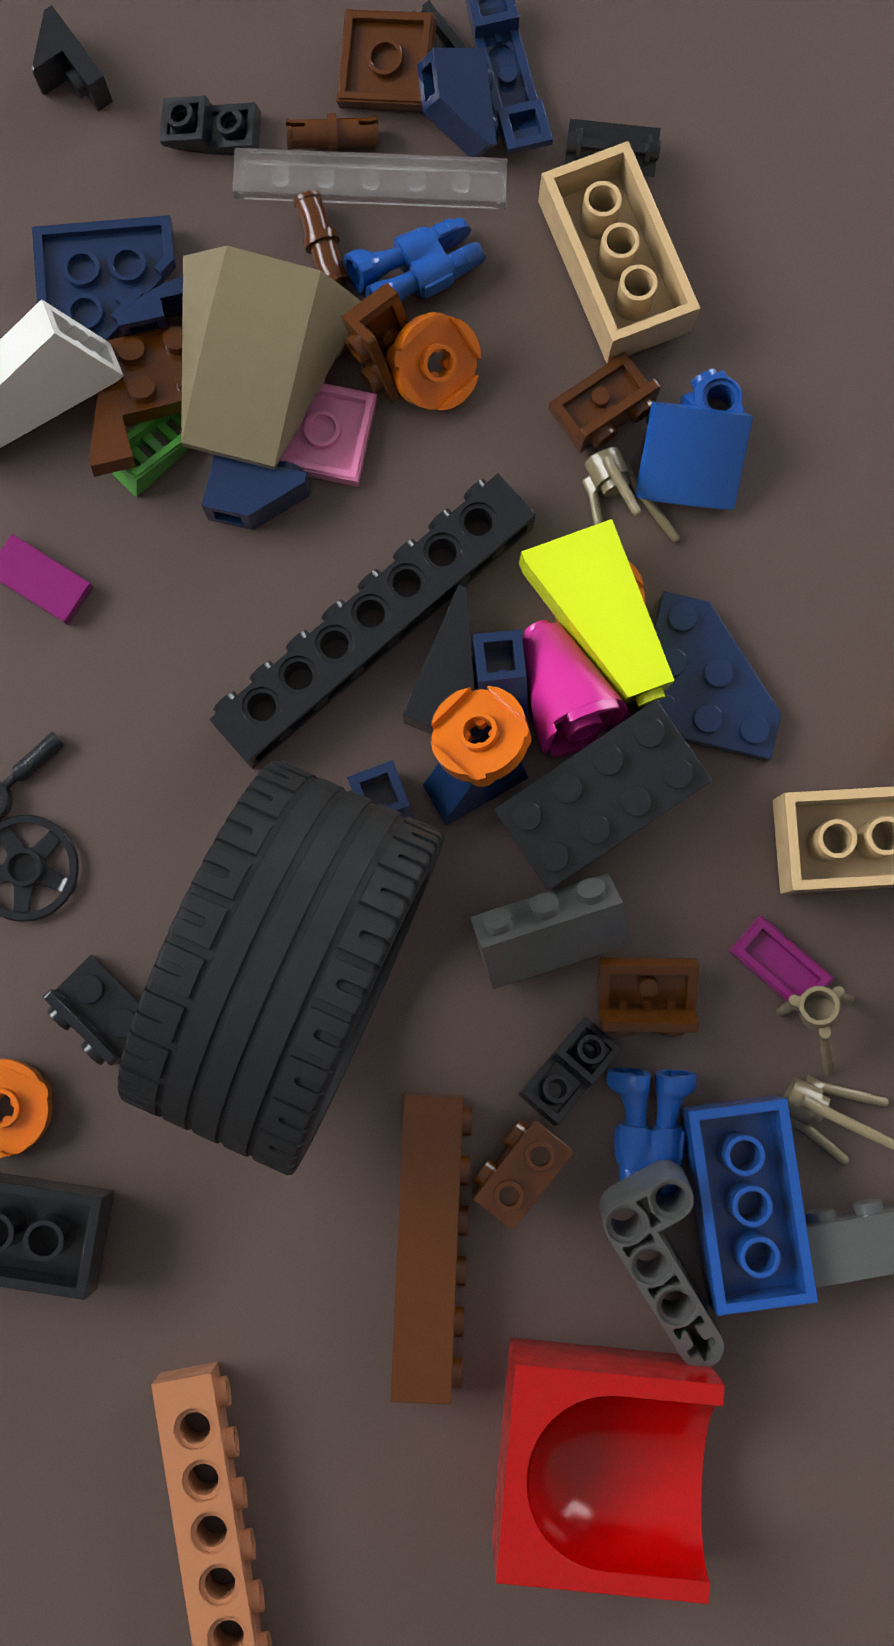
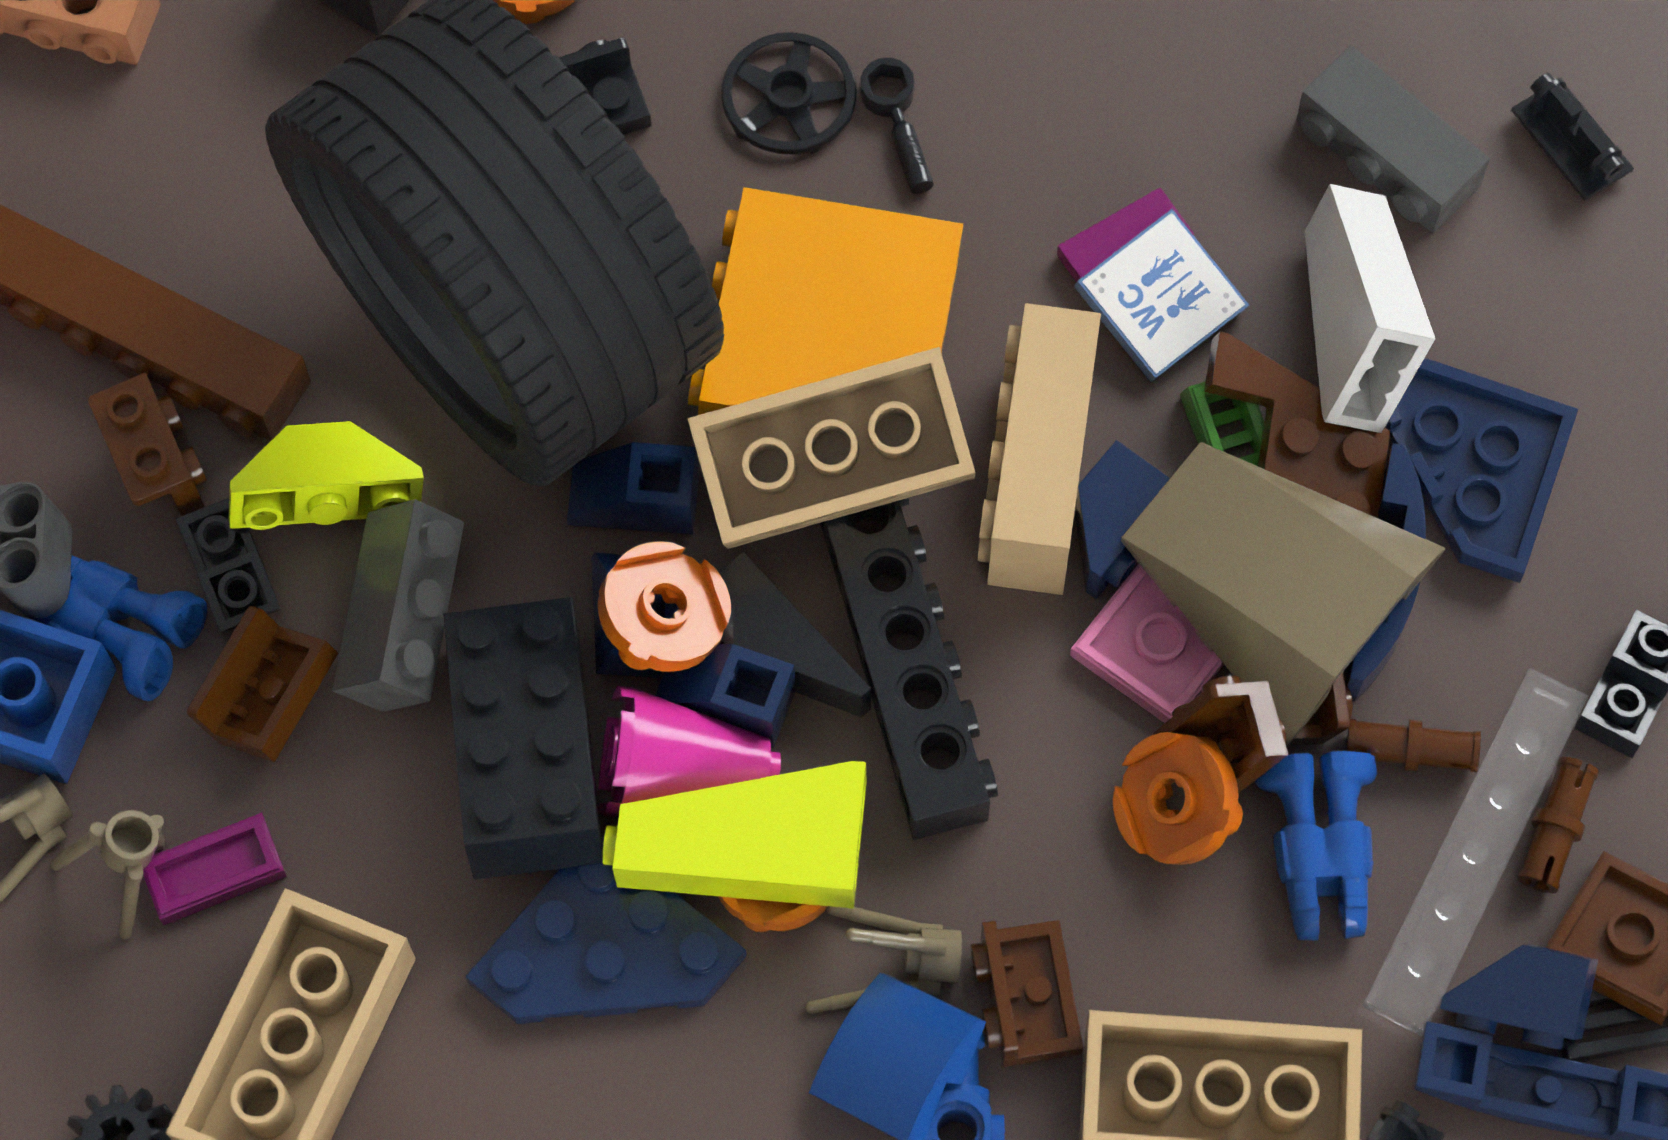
camera: 120 degrees right, 15 degrees down
(70, 533) = (1161, 295): none -> white tile
(192, 736) = (822, 294): none -> light orange panel
(229, 550) = (1038, 448): none -> tan brick
(312, 669) = (832, 448): none -> tan brick
(482, 1033) = (321, 478): none -> neon yellow slope

